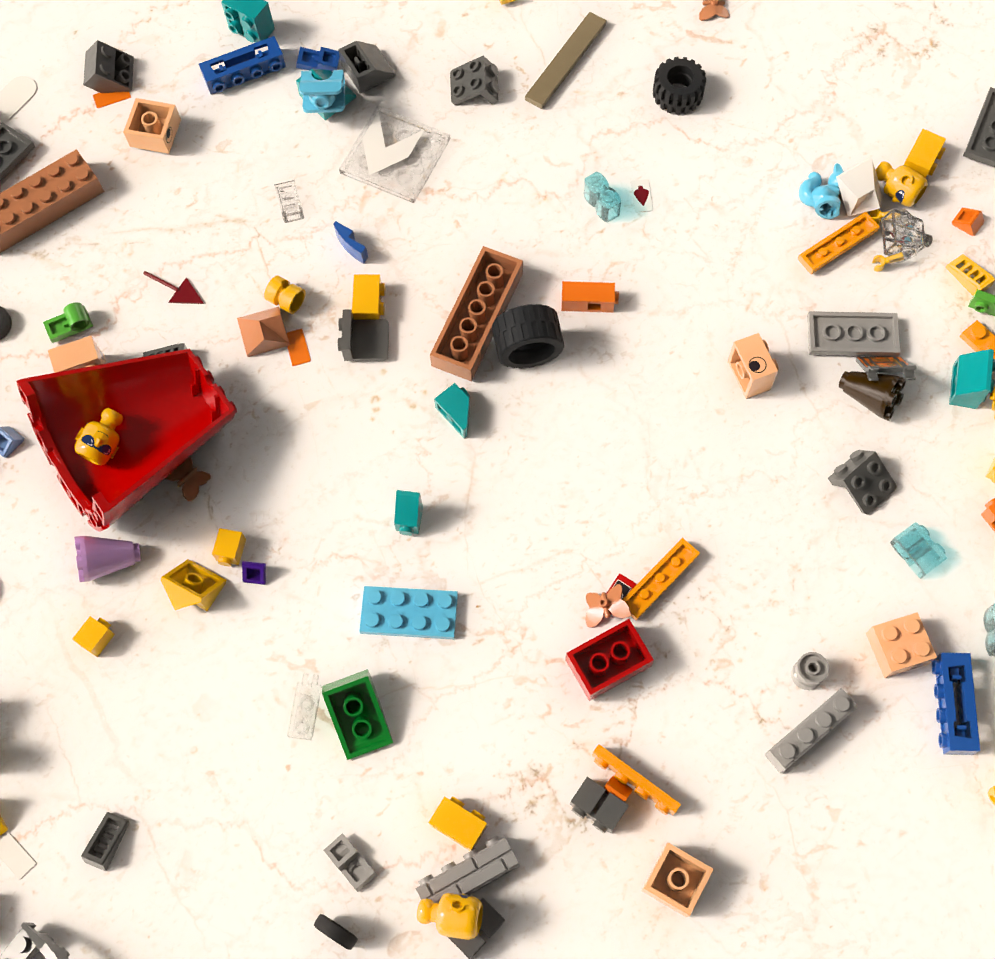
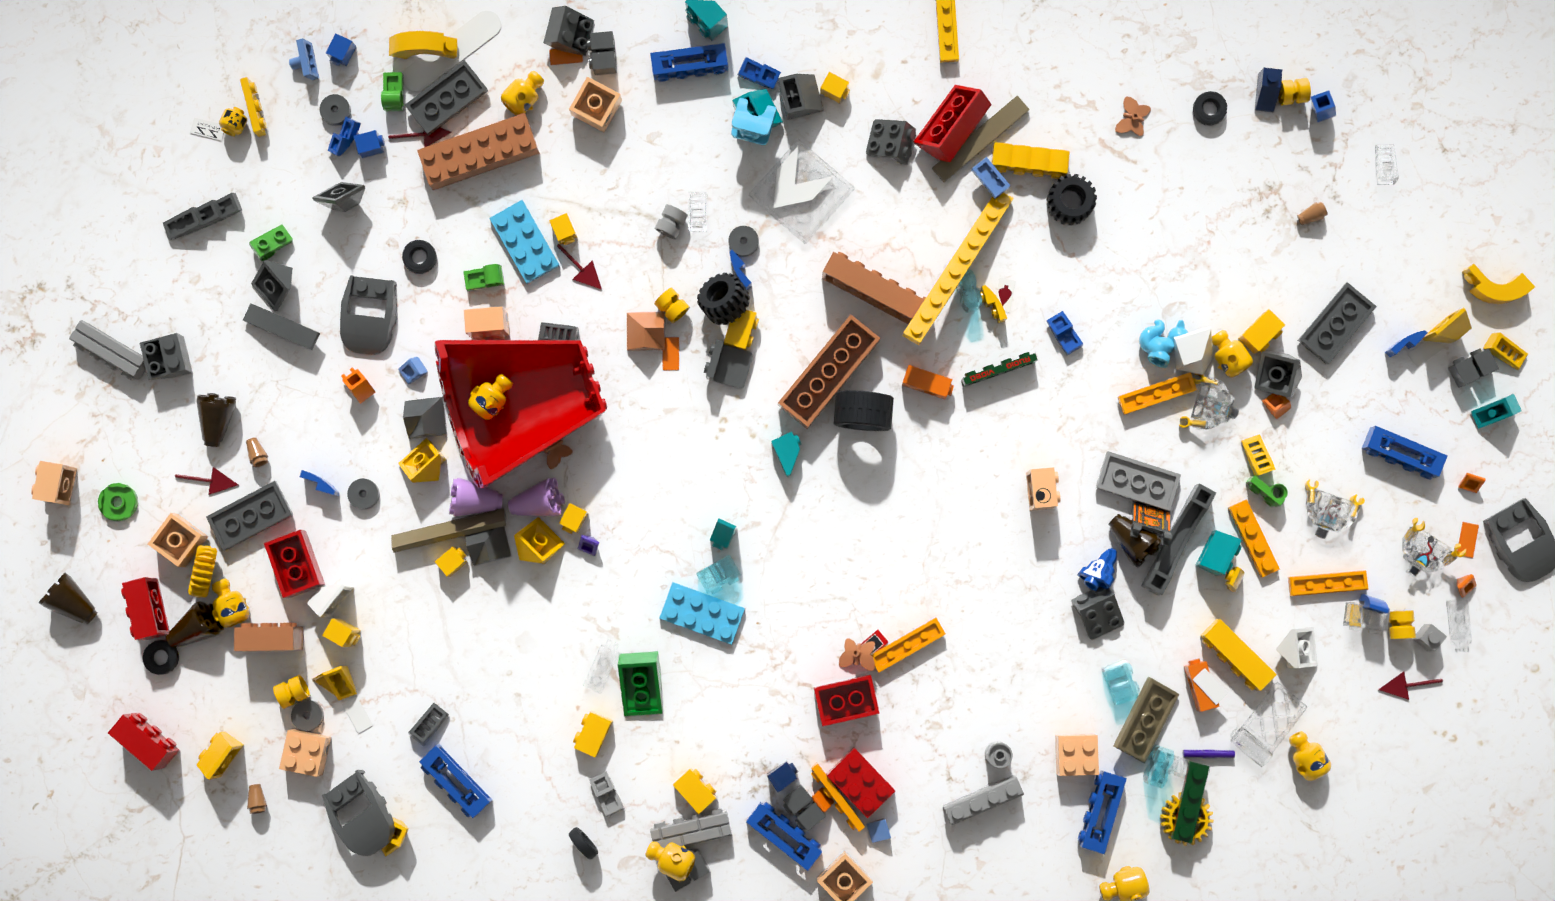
camera: 15 degrees right, 15 degrees up
(30, 488) = (425, 417): none -> dark grey slope
(39, 533) = (423, 463): none -> yellow slope
(71, 135) = (521, 94): none -> yellow piece
(82, 602) = (448, 530): none -> dark tan tile
(106, 278) = (524, 241): none -> medium azure plate
(120, 880) = (443, 781): none -> blue brick
(133, 605) = (488, 546): none -> dark grey slope
(146, 252) = (563, 229): none -> yellow brick
(149, 79) = (603, 53): none -> dark grey piece
(182, 537) = (538, 500): none -> lavender cone
(262, 214) = (671, 221): none -> light grey wheel
(313, 791) = (592, 733): none -> yellow brick
(339, 268) = (723, 298): none -> black tyre
(347, 207) = (739, 233): none -> dark grey piece
(400, 50) = (835, 87): none -> yellow brick
(415, 561) = (718, 574): none -> clear light blue brick
(505, 219) = (872, 287): none -> nougat brick
(533, 48) = (953, 122): none -> red slope
(560, 772) = (782, 775): none -> dark blue slope
(582, 173) = (957, 268): none -> yellow plate
(589, 86) = (990, 178): none -> medium blue tile
(599, 840) = (797, 833): none -> blue brick
(622, 63) = (1030, 159): none -> yellow brick
(634, 201) = (991, 299): none -> yellow slope
(656, 267) = (1006, 366): none -> dark green plate
(658, 753) = (860, 782): none -> red brick
(698, 807) = (878, 830): none -> medium blue slope
(716, 212) = (1064, 333): none -> blue slope
(848, 436) = (1100, 571): none -> blue rock
(917, 404) = (1183, 528): none -> dark grey arch
(930, 36) = (1313, 213): none -> medium nougat cone
(958, 187) = (1278, 373): none -> dark grey slope
(964, 582) = (1146, 719): none -> dark tan tile

